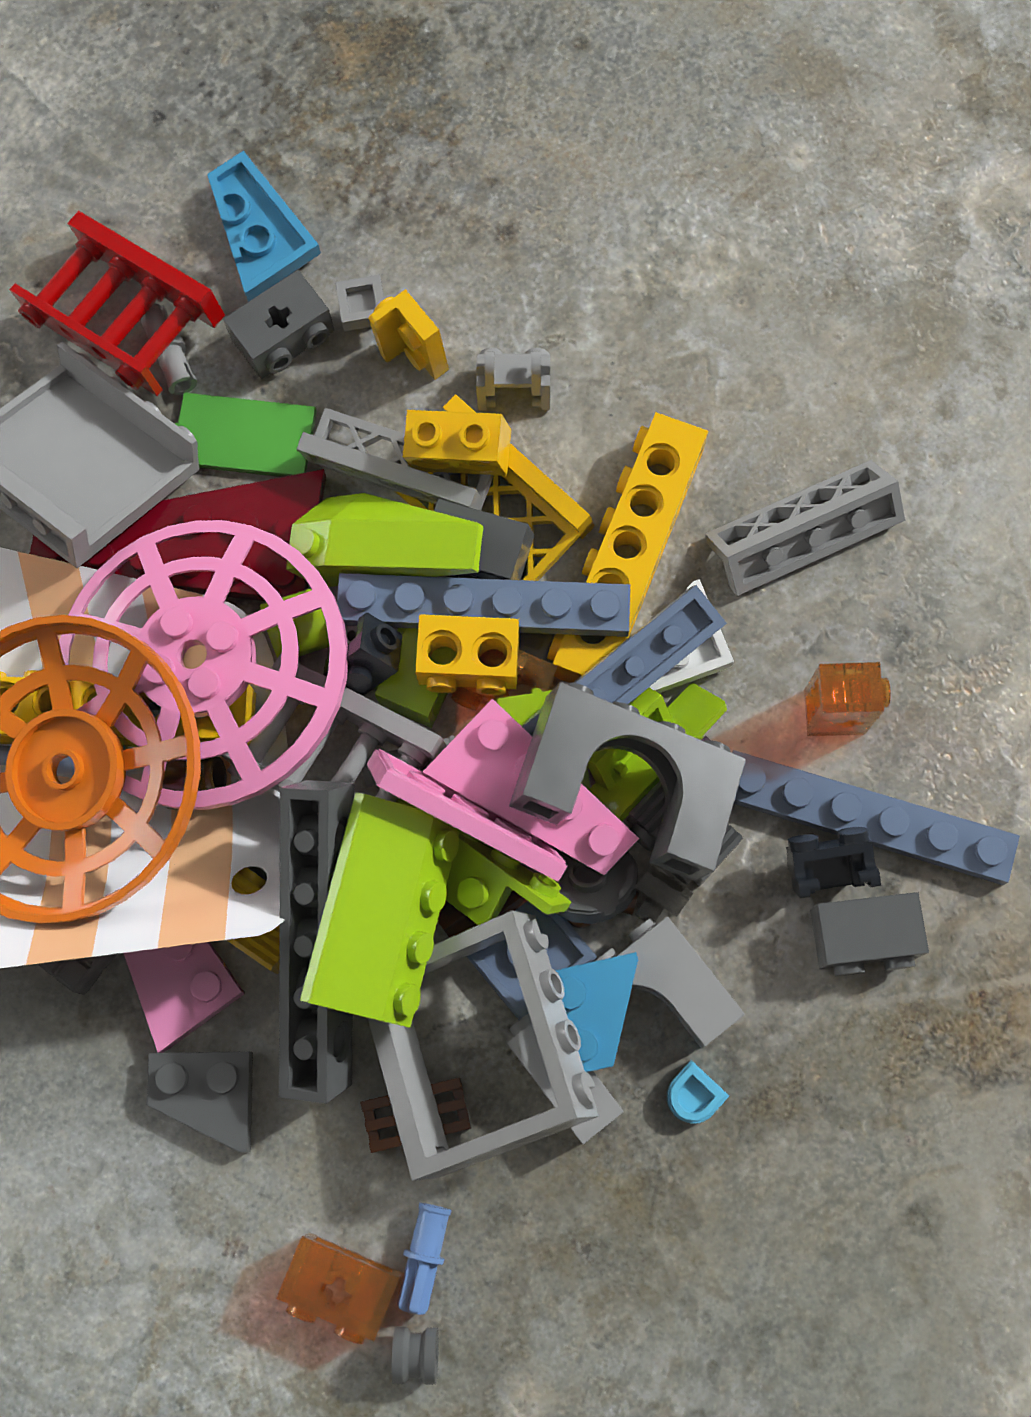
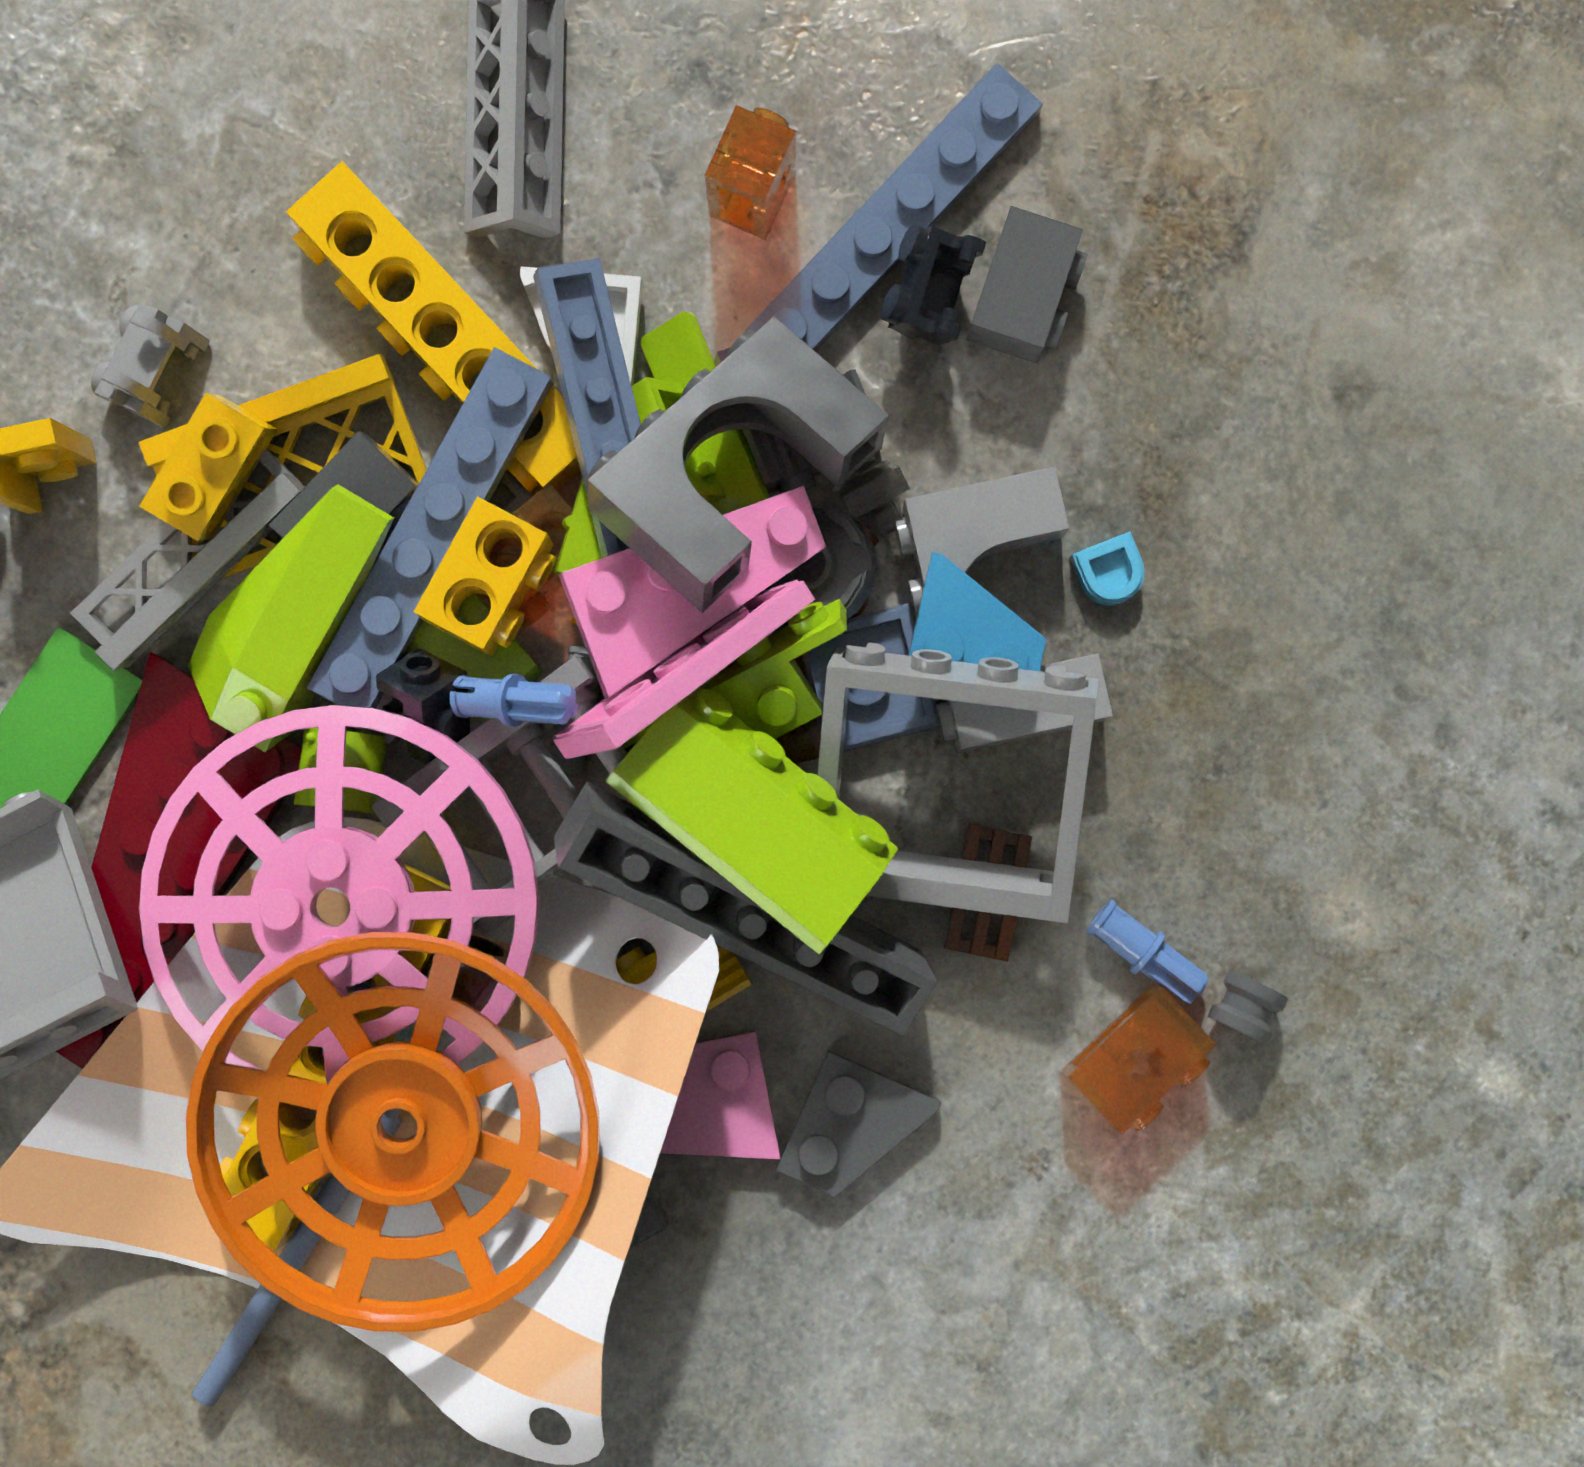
camera: 70 degrees left, 10 degrees up
(389, 709) = (513, 700): none -> medium blue axle

